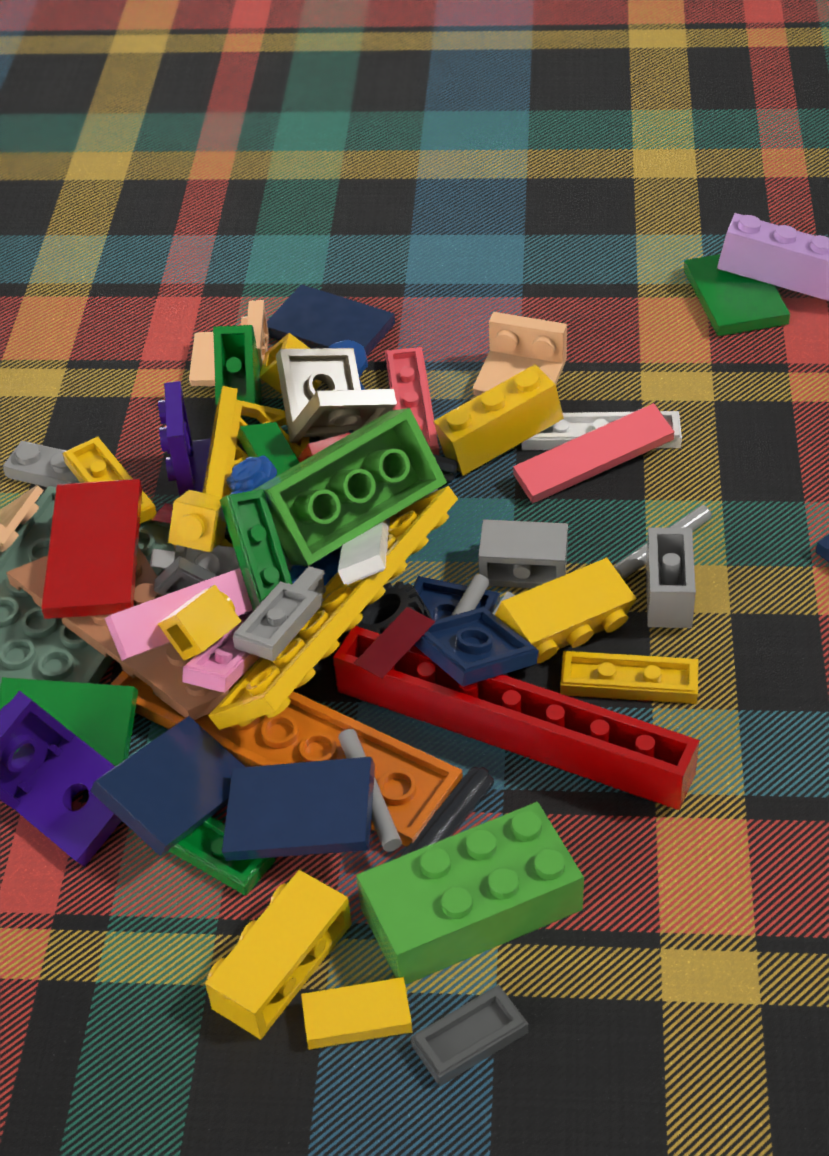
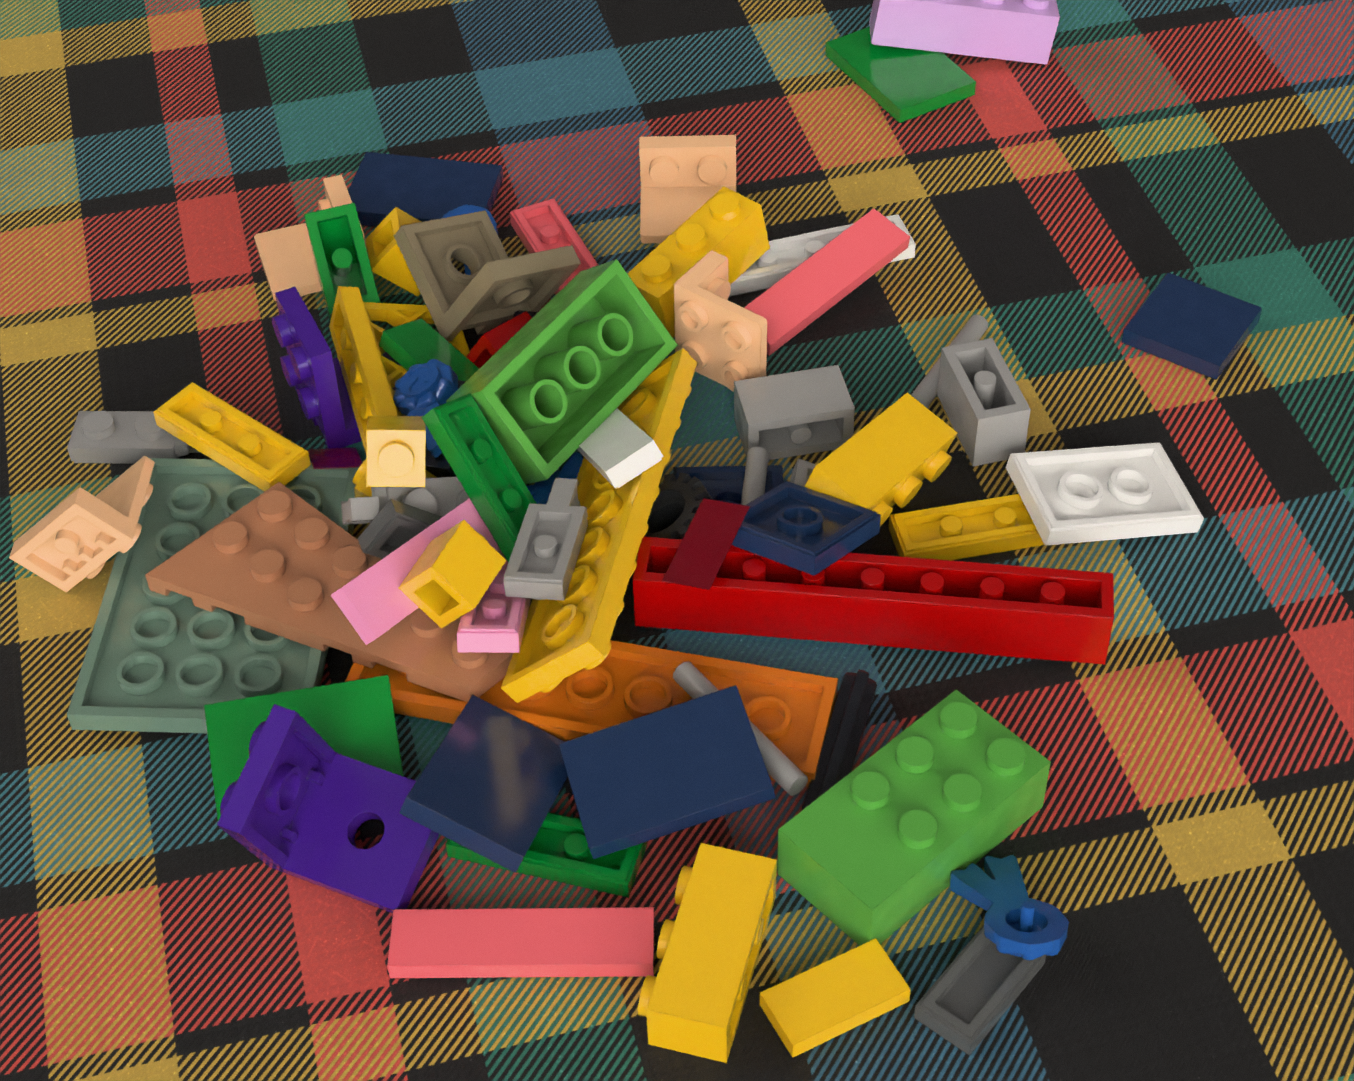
camera: 20 degrees left, 0 degrees up
(93, 549) = (259, 519): red tile -> none
(152, 908) = (522, 942): none -> coral tile
(484, 469) = (717, 333): none -> light nougat bracket
(510, 993) = (1012, 919): none -> blue piece
(739, 673) = (1103, 493): none -> white tile

